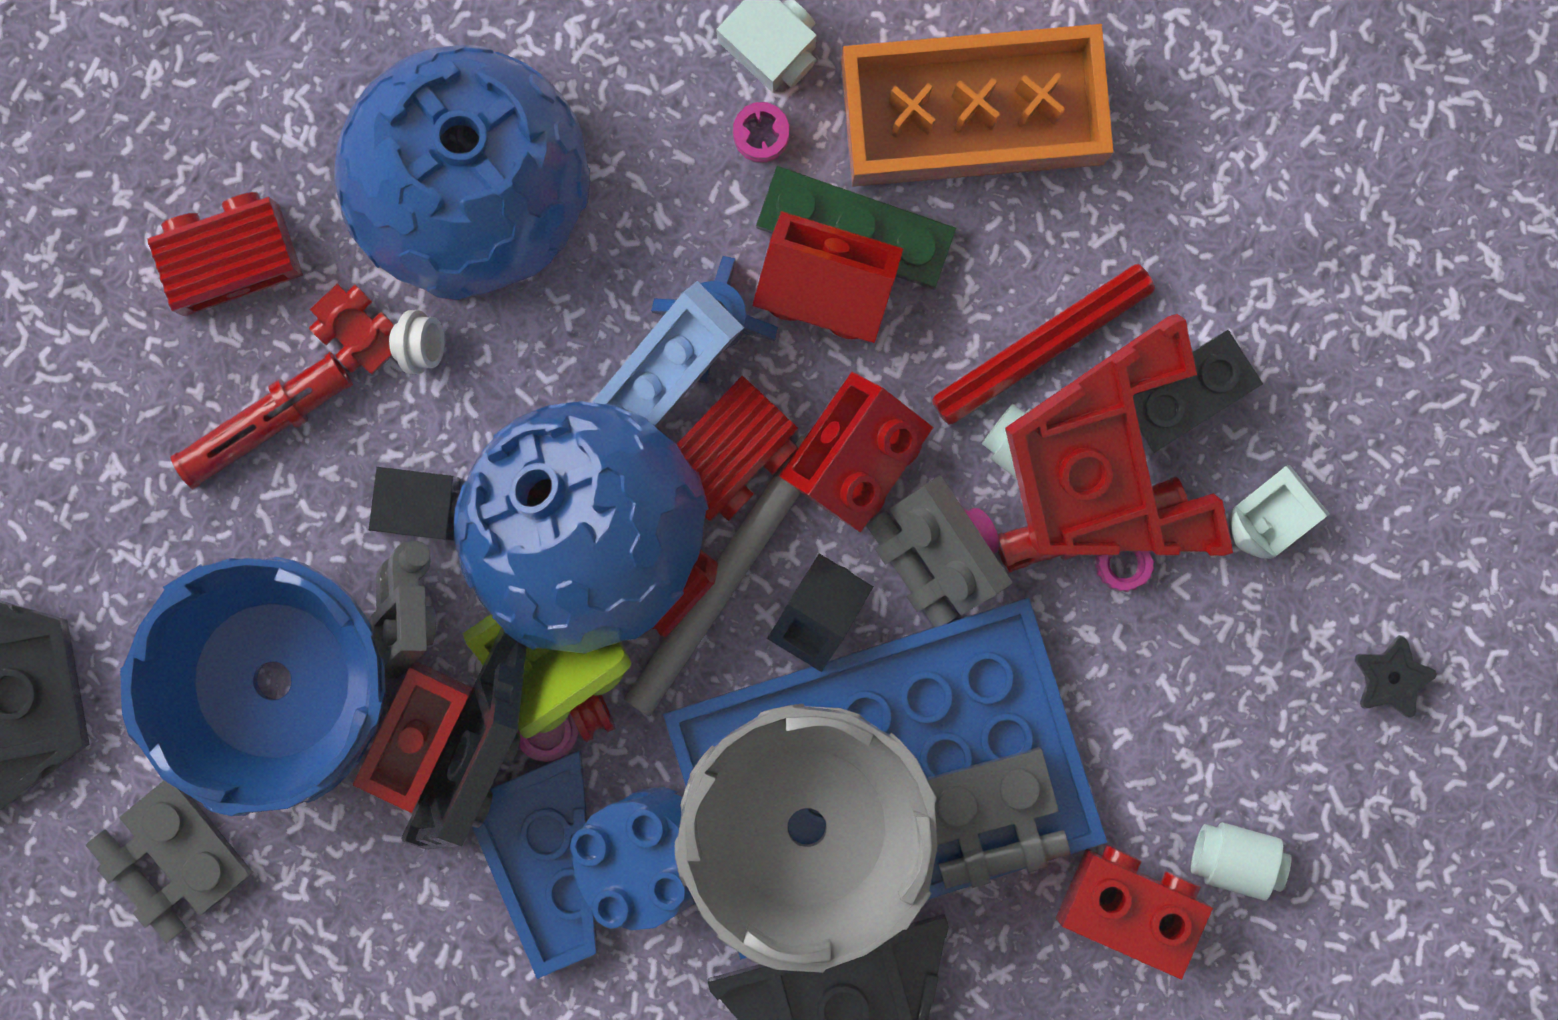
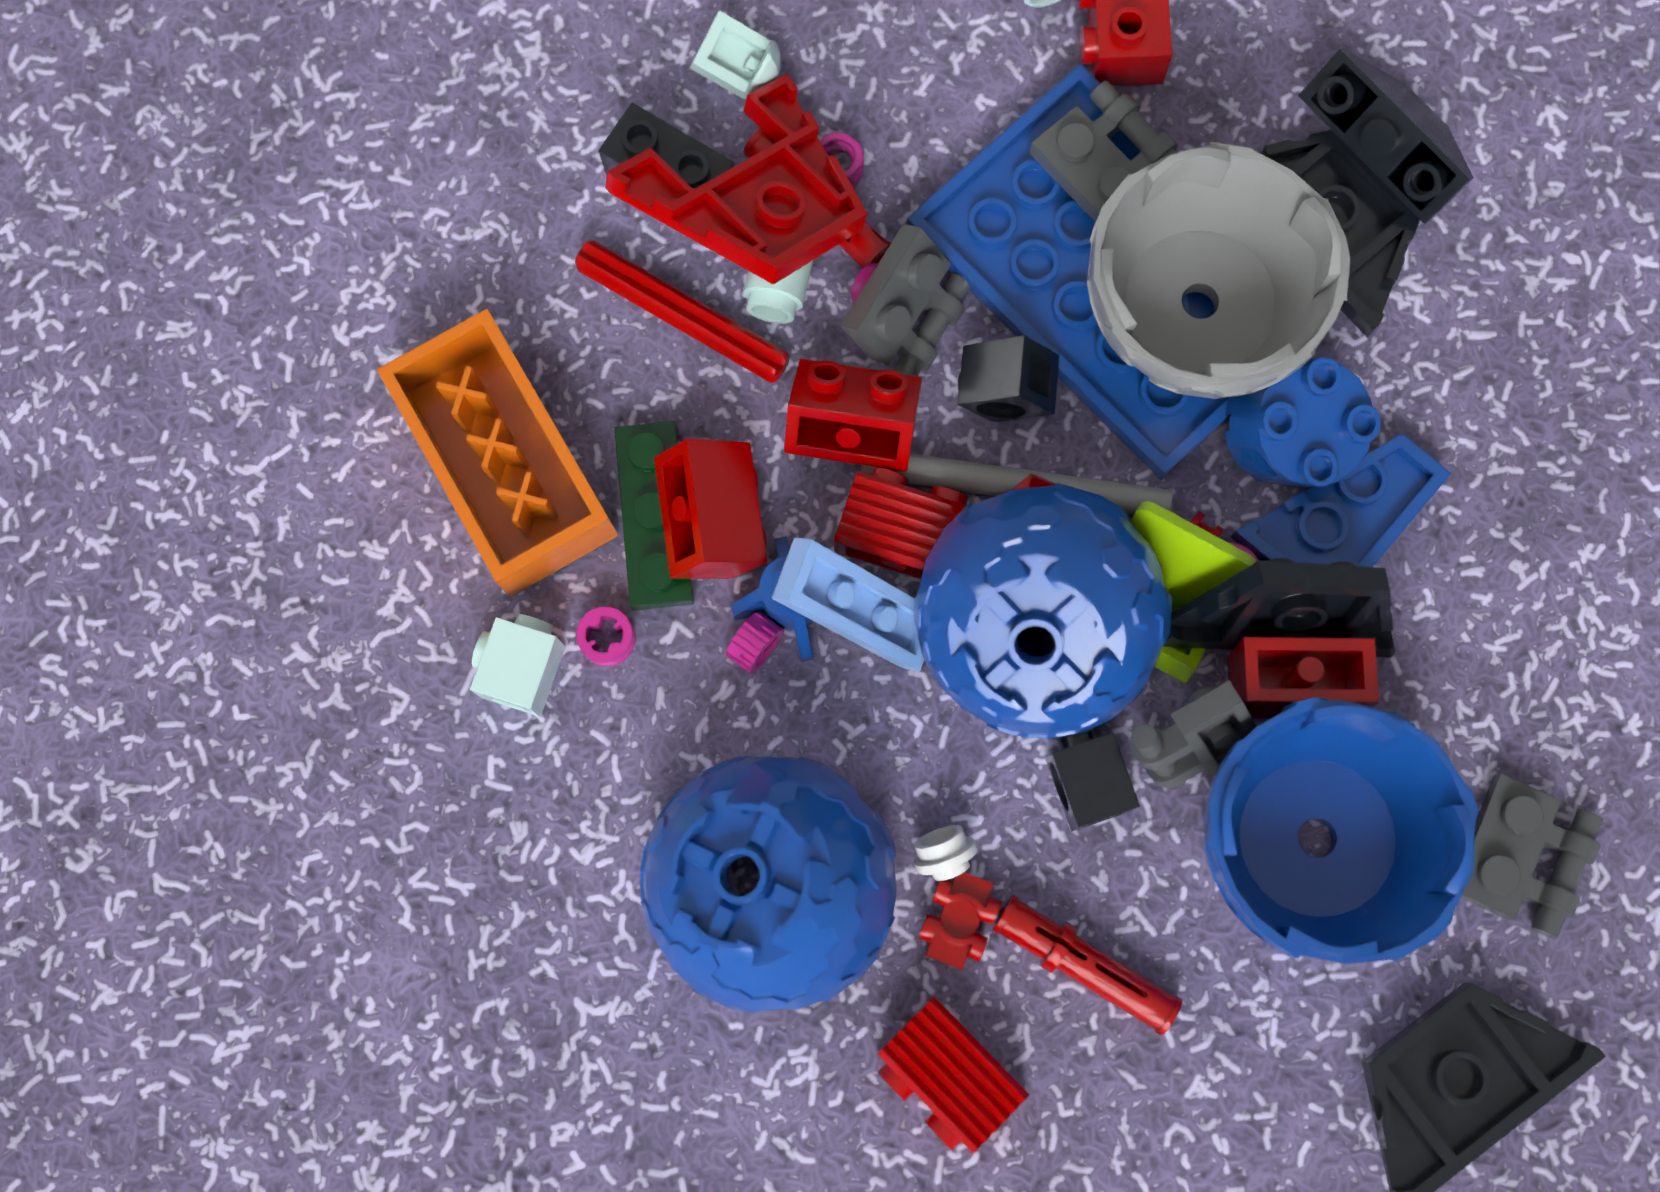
camera: 110 degrees left, 10 degrees down
(687, 260) = (754, 642): none -> dark pink axle

